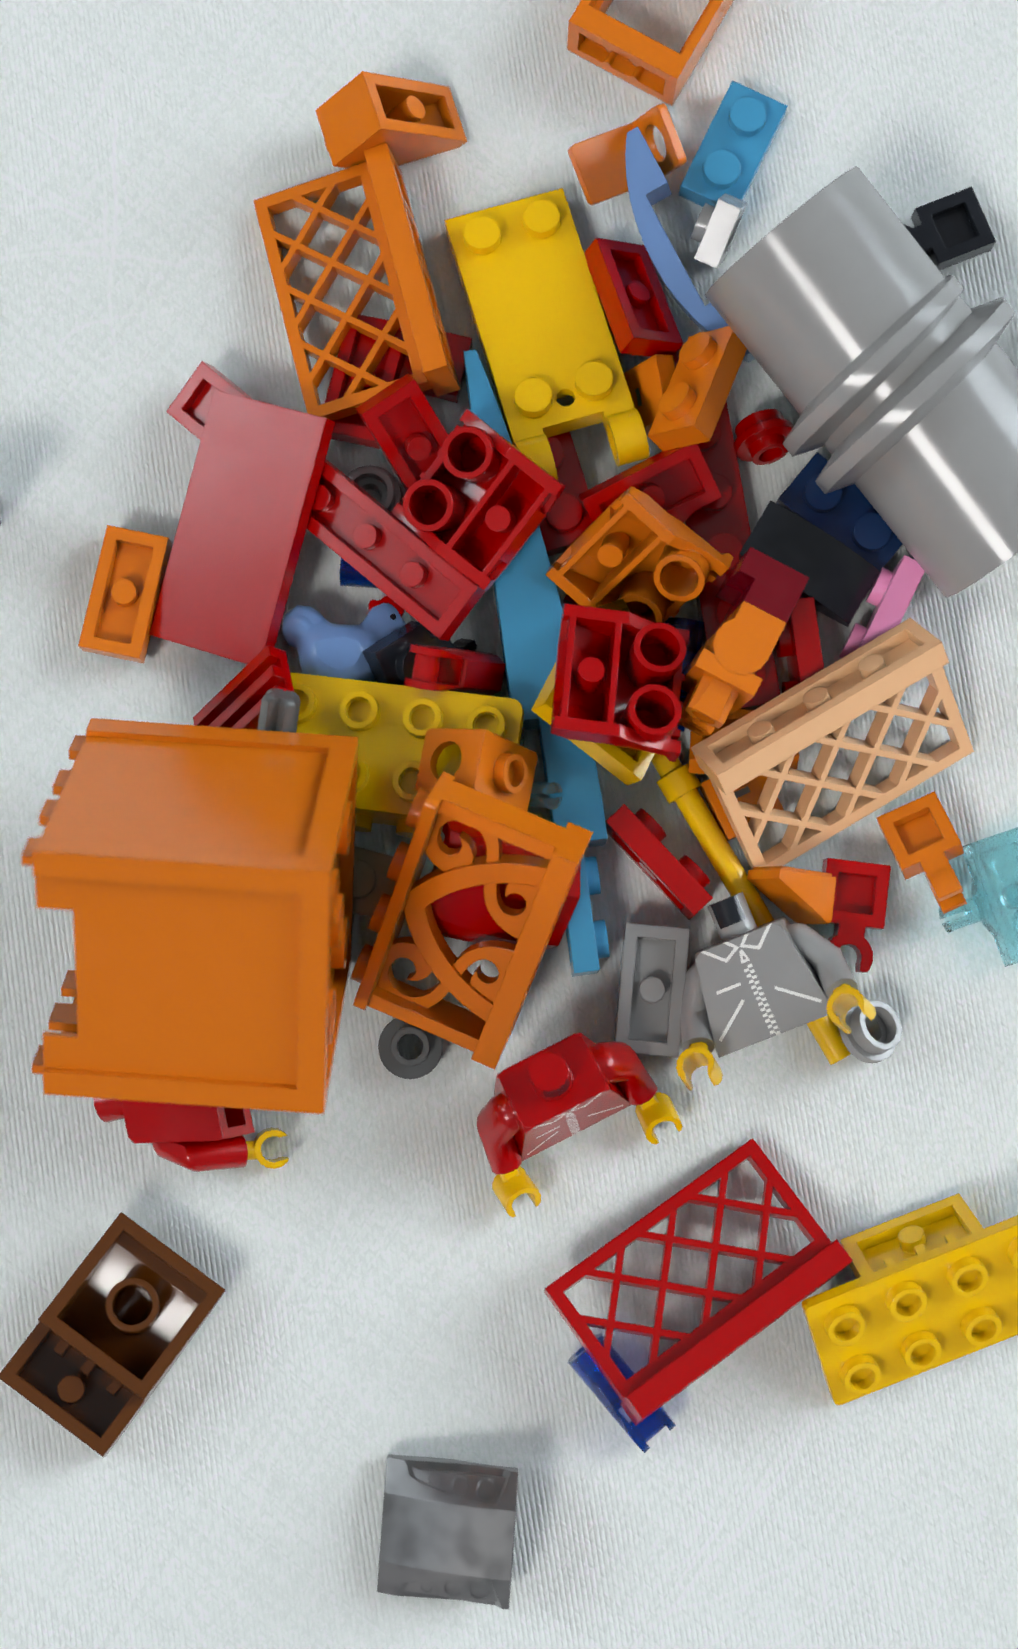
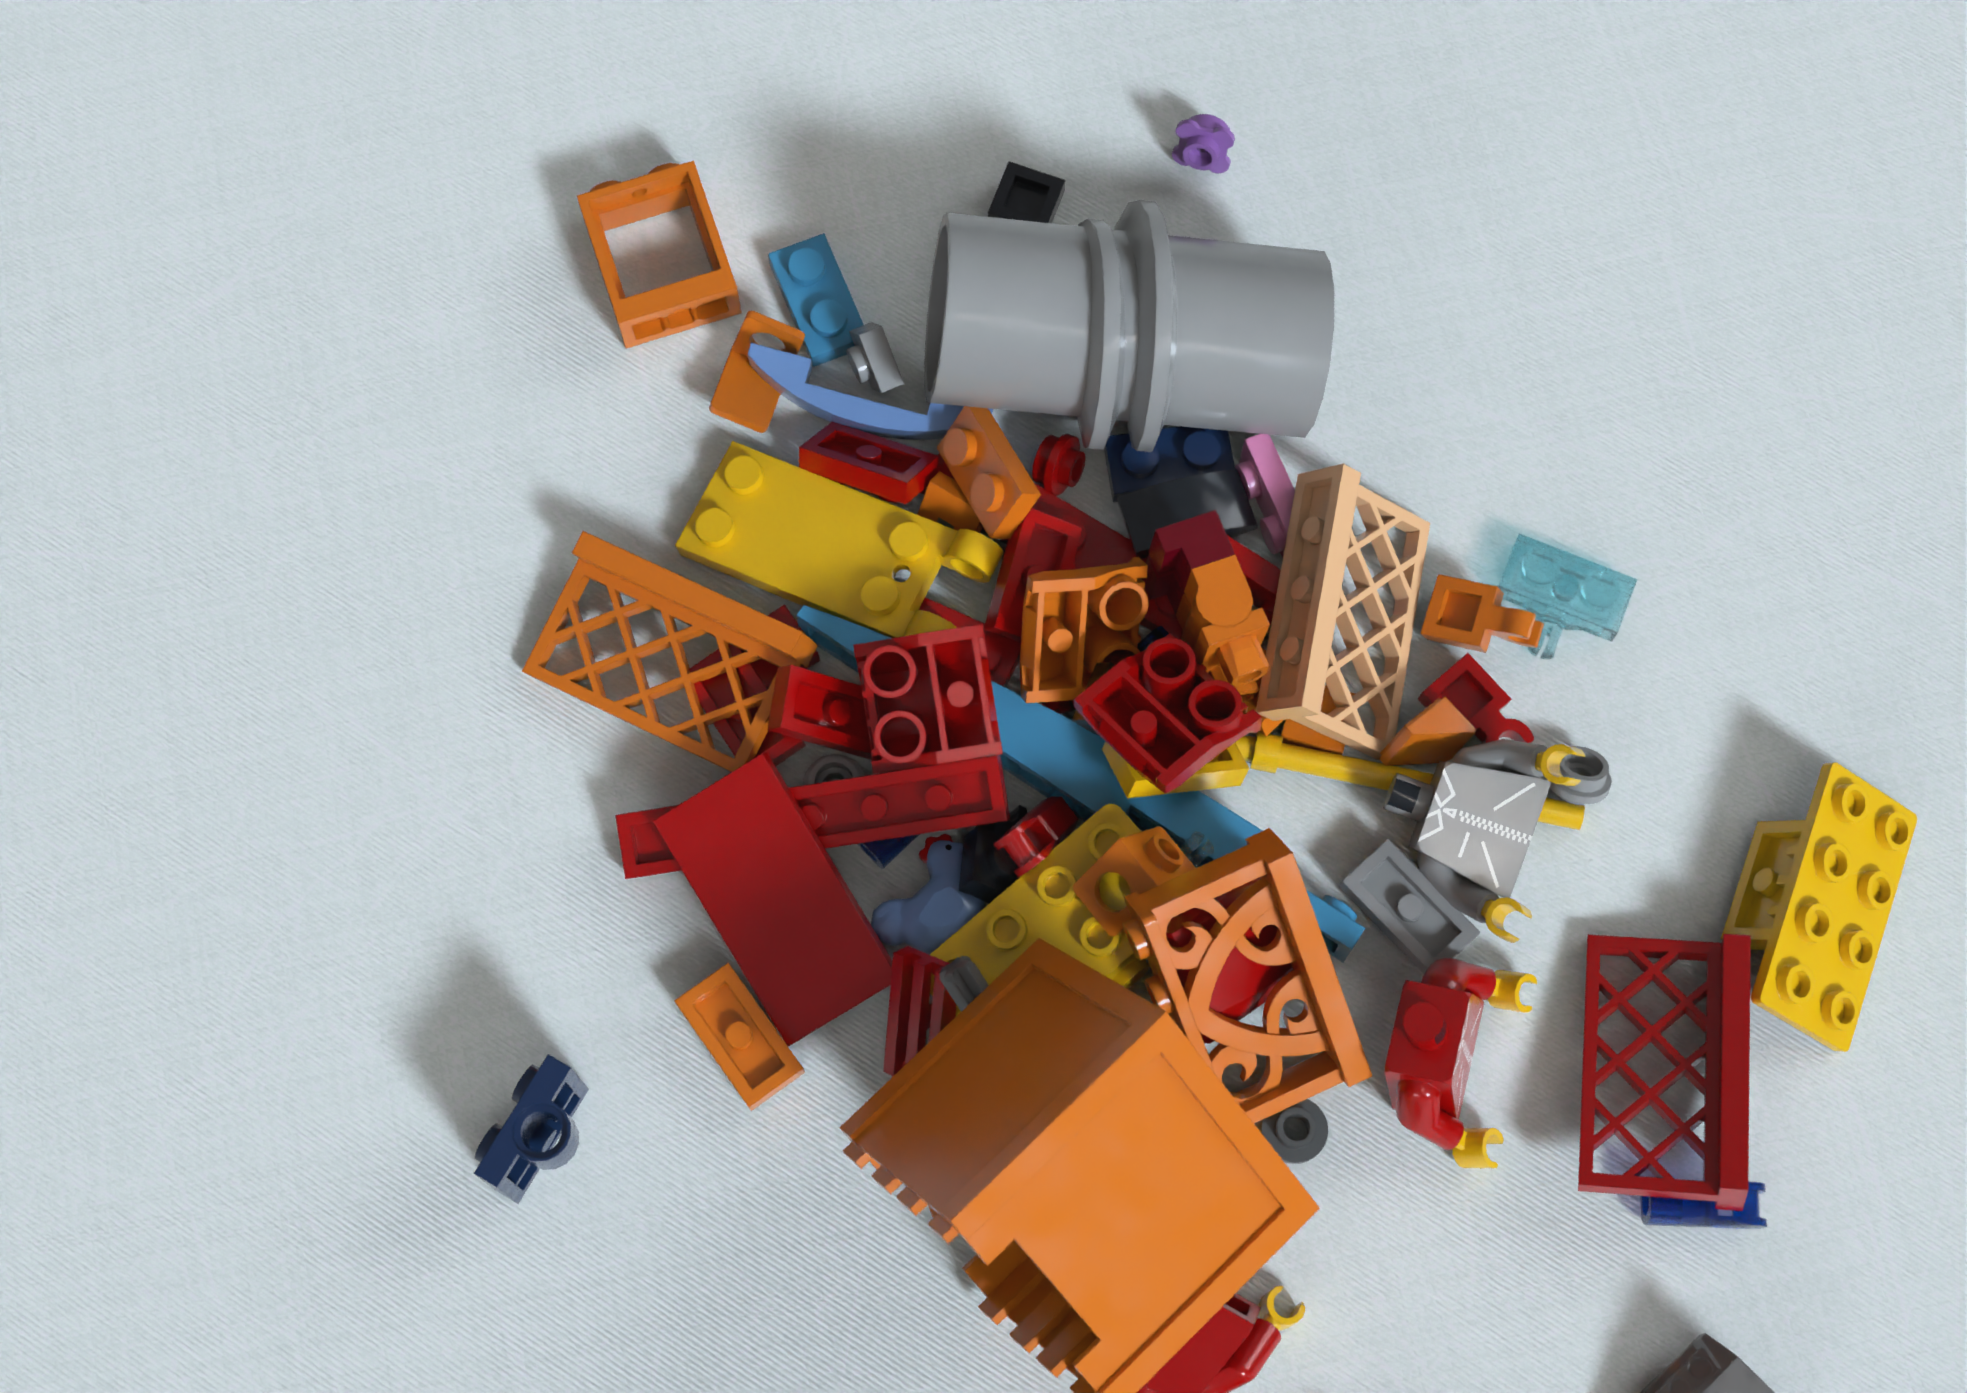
camera: 45 degrees left, 10 degrees down
(377, 109) = (555, 513): orange slope -> none
(641, 840) = (1338, 816): red plate -> none

